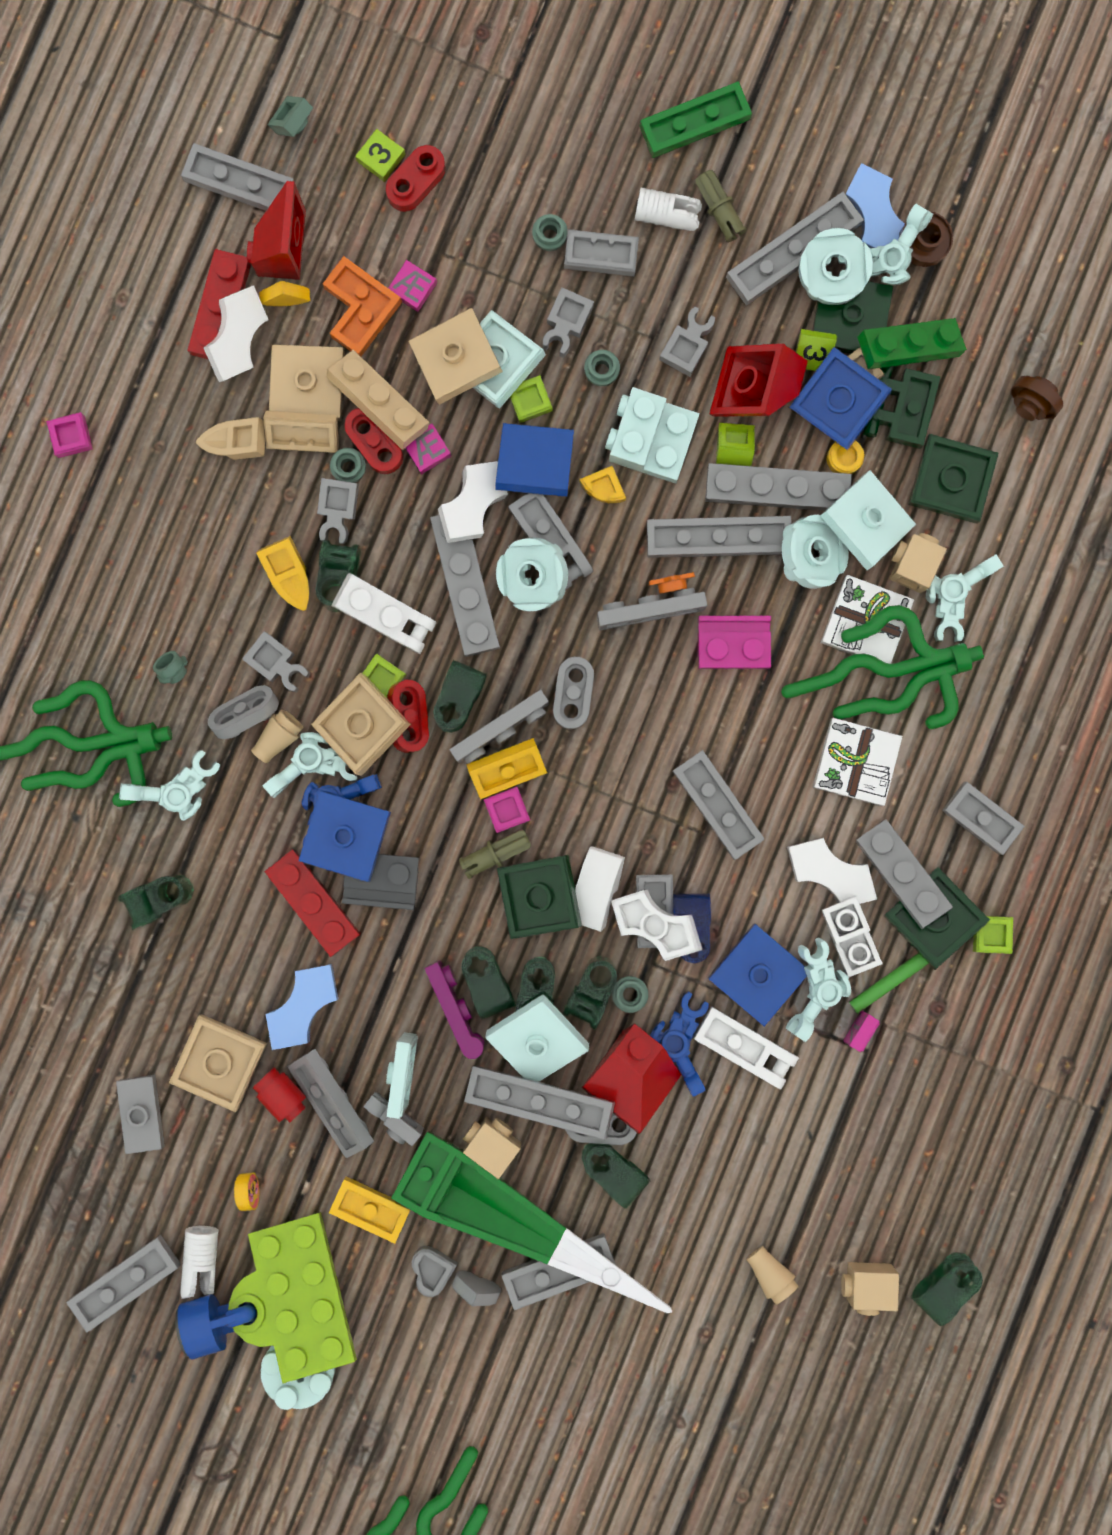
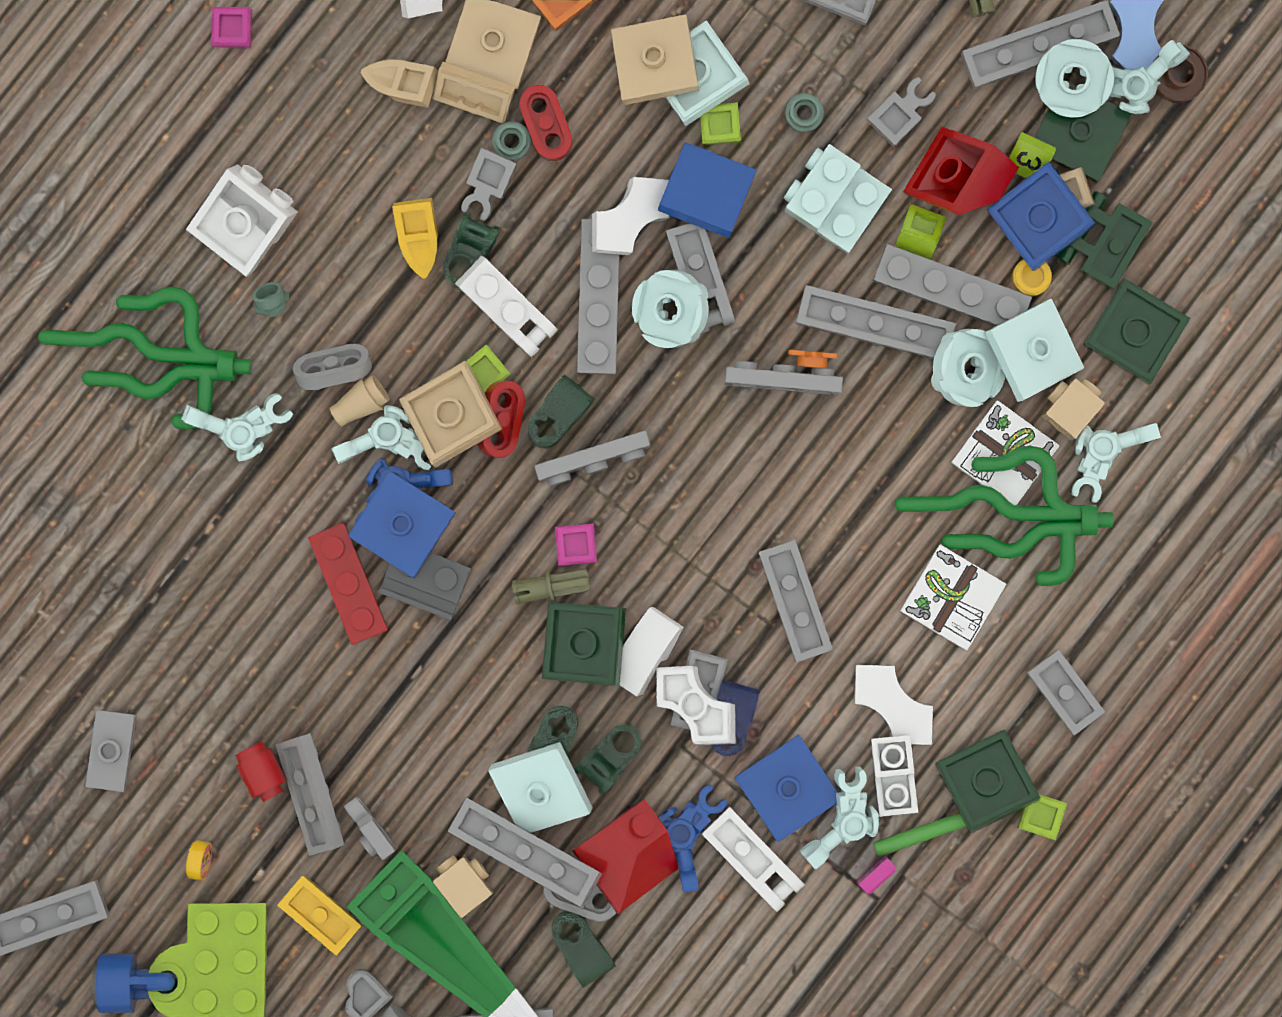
camera: 15 degrees right, 0 degrees up
(124, 601) = (242, 218): none -> white plate
(151, 901) = (181, 534): clear green piece -> none
(199, 1256) = (131, 911): white hinge -> none
(218, 1063) = (205, 720): tan plate -> none
(273, 659) = (376, 321): light grey plate -> none
(292, 1021) = (323, 674): light blue tile -> none
(377, 399) = (561, 82): tan plate -> none
(400, 1075) = (391, 784): light aqua plate -> none
(428, 450) = (598, 146): dark pink tile -> none
(455, 1010) = (465, 736): magenta plate -> none
(487, 989) = (504, 723): clear green piece -> none
(506, 768) = (587, 501): yellow plate -> none
(568, 317) = (784, 50): light grey plate -> none
(573, 692) = (678, 443): light grey plate -> none
(603, 486) = (771, 236): yellow tile -> none
(633, 1005) = (644, 782): sand green plate -> none
(734, 642) = (860, 437): dark pink plate -> none
(904, 874) = (966, 726): light grey plate -> none
(911, 343) = (1132, 179): green plate -> none
(1036, 398) = (1244, 273): reddish brown plate -> none

